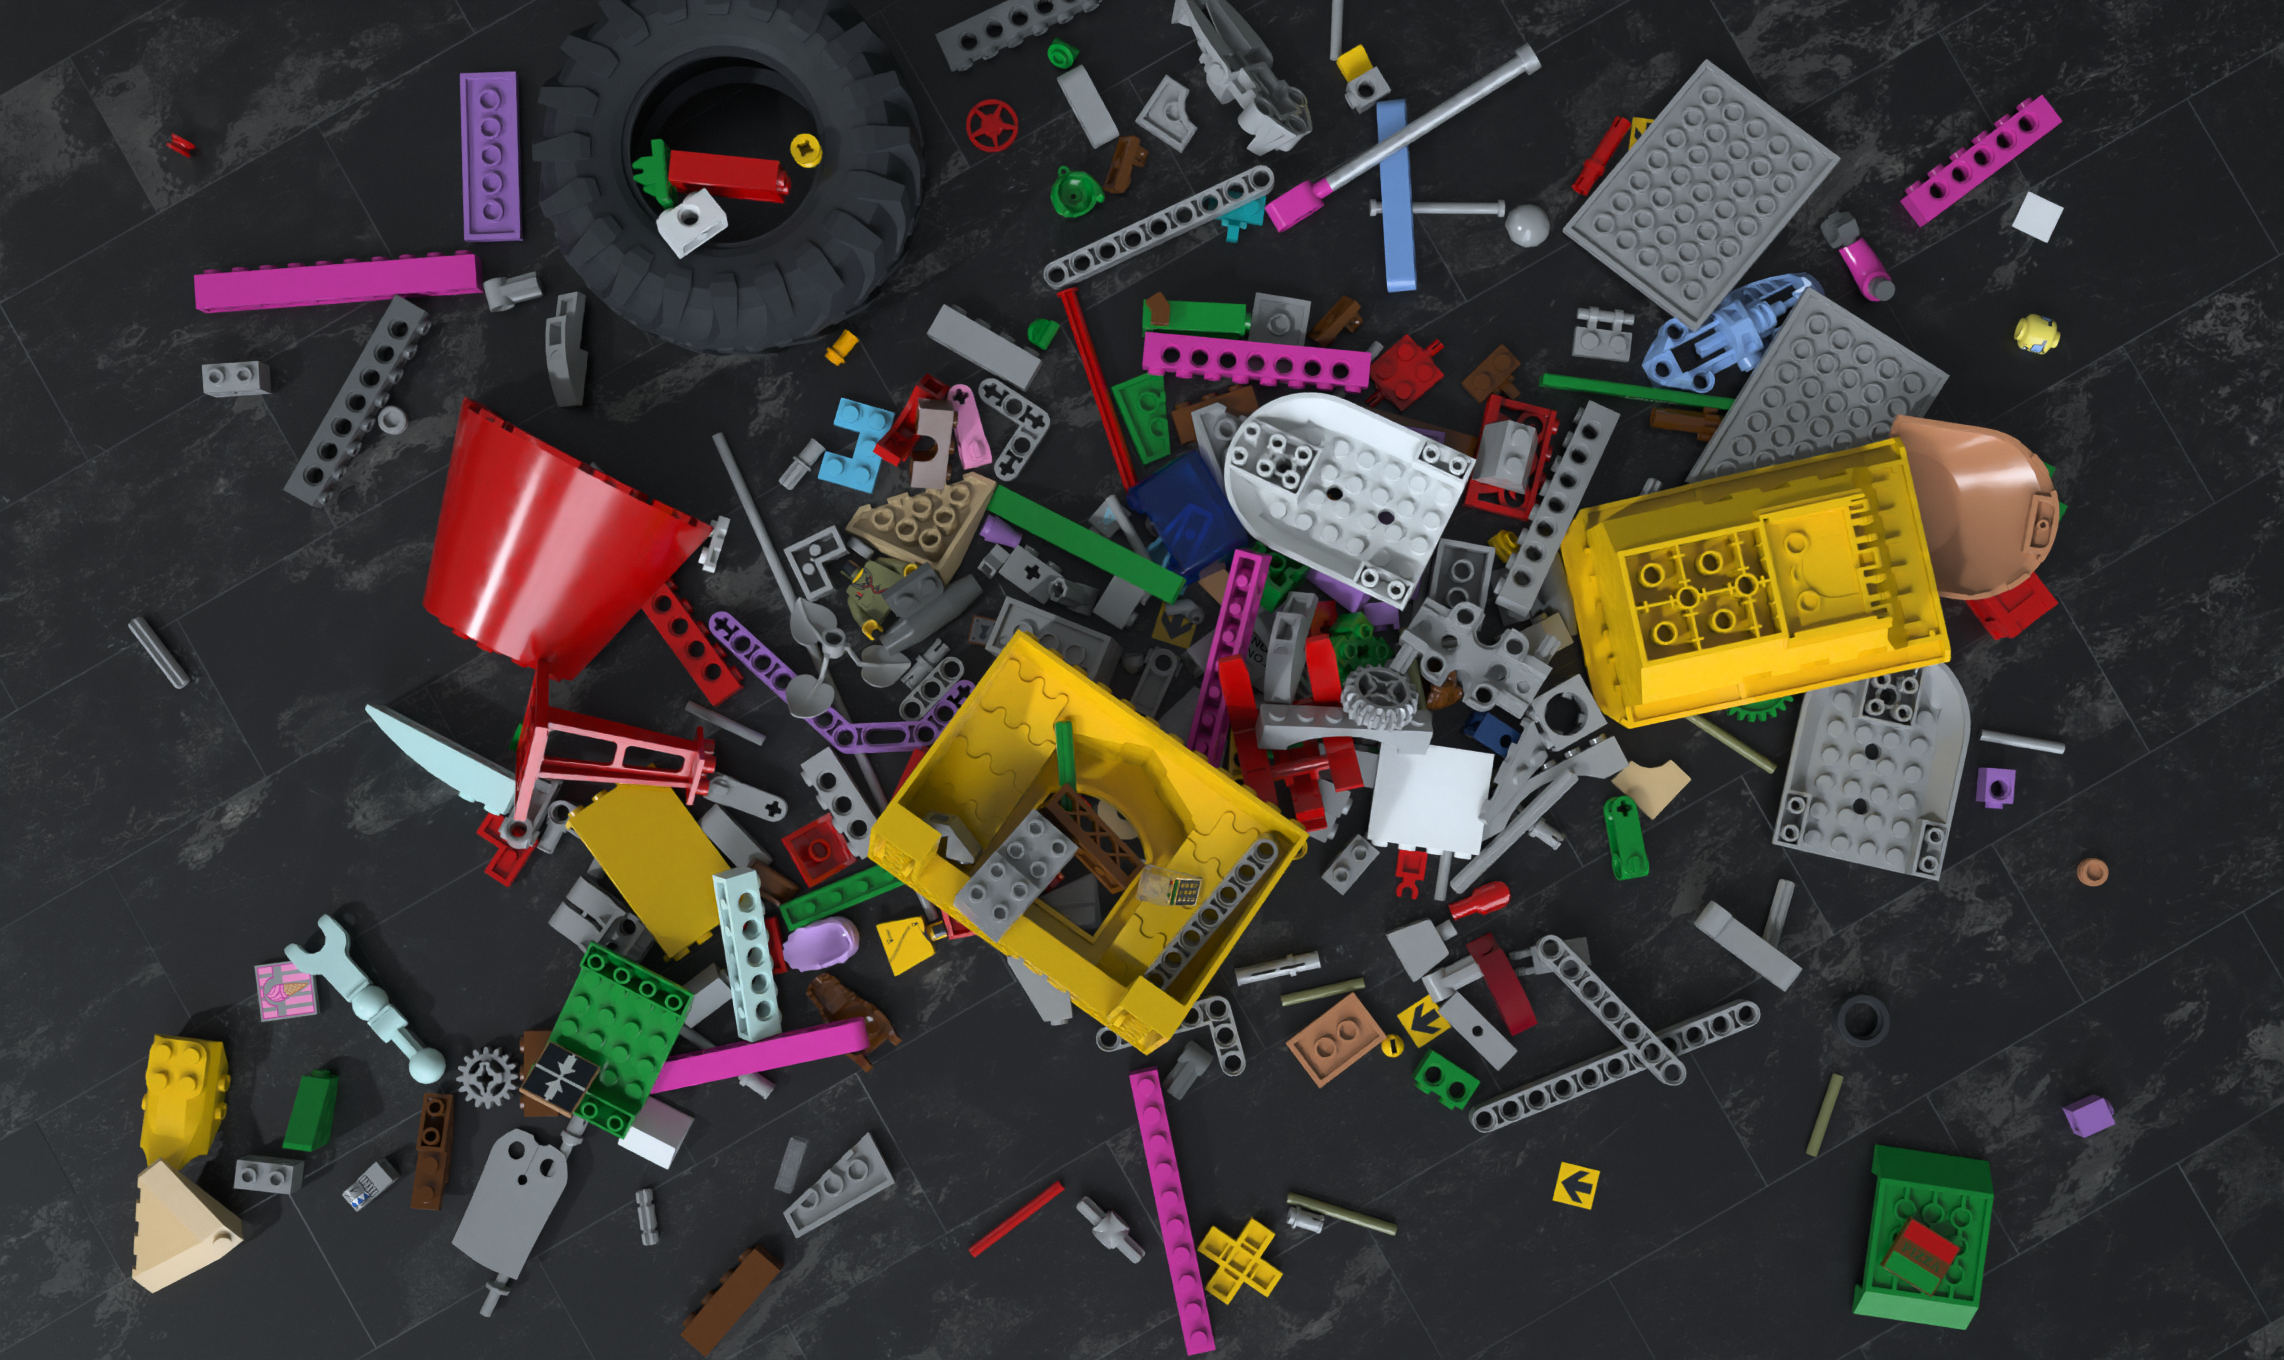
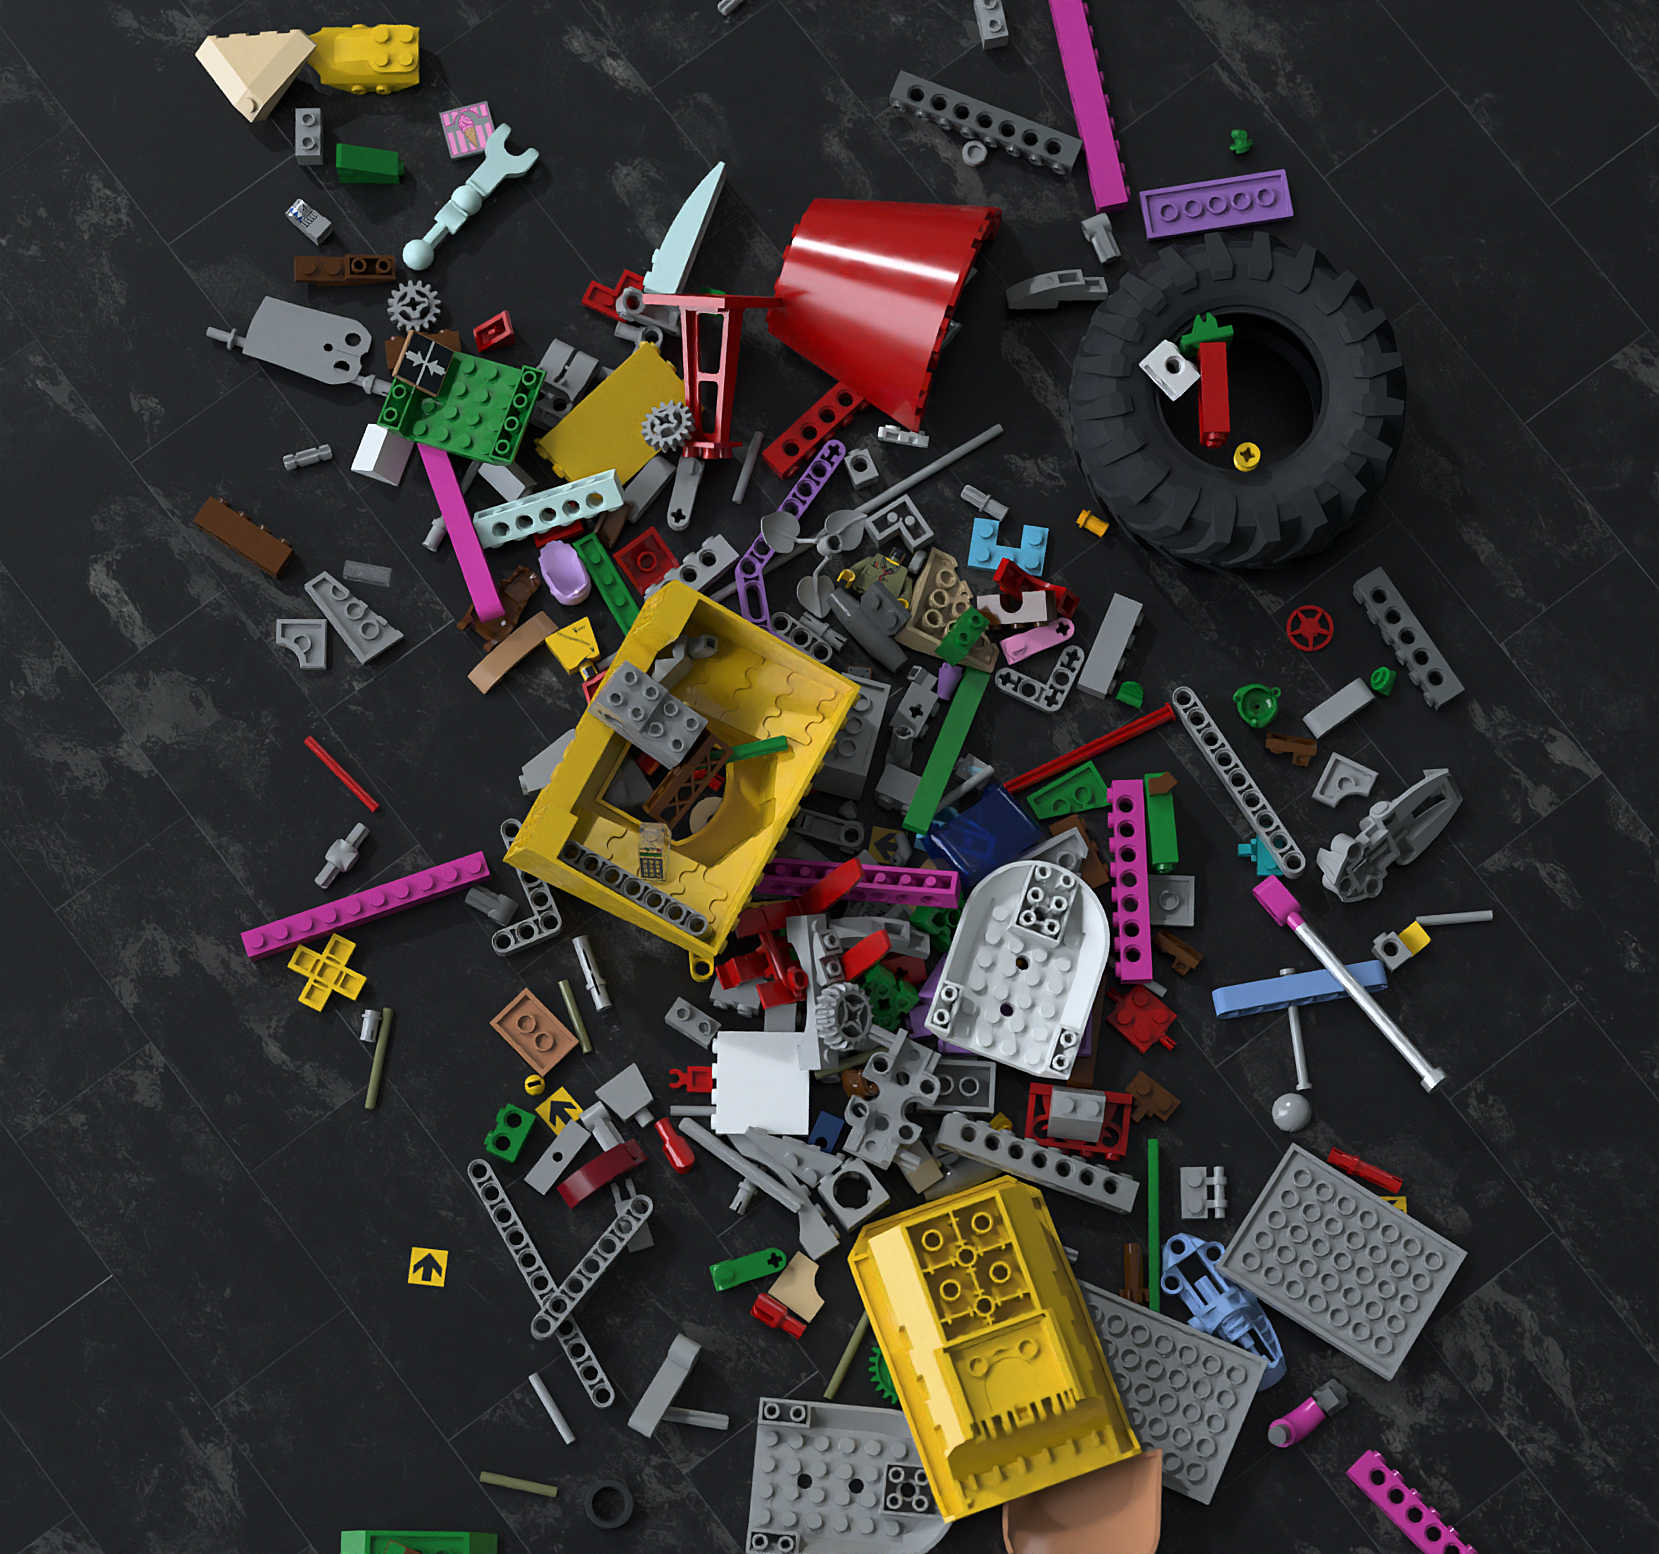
camera: 80 degrees right, 10 degrees down
(421, 117) = (1241, 143): none -> green plate
(531, 988) = (495, 333): none -> red slope
(671, 808) = (670, 426): none -> light grey gear
(756, 593) = (864, 478): none -> light grey brick
(858, 1241) = (306, 639): none -> light grey tile
(902, 1012) = (512, 651): none -> medium nougat slope
(936, 801) = (703, 646): none -> light grey piece
(956, 509) = (962, 636): none -> green brick
(1313, 709) = (826, 948): none -> light grey slope
(1334, 746) = (796, 980): none -> red plate
(1681, 813) = (776, 1315): none -> red arm
(1747, 1069) = (551, 1408): none -> light grey piece

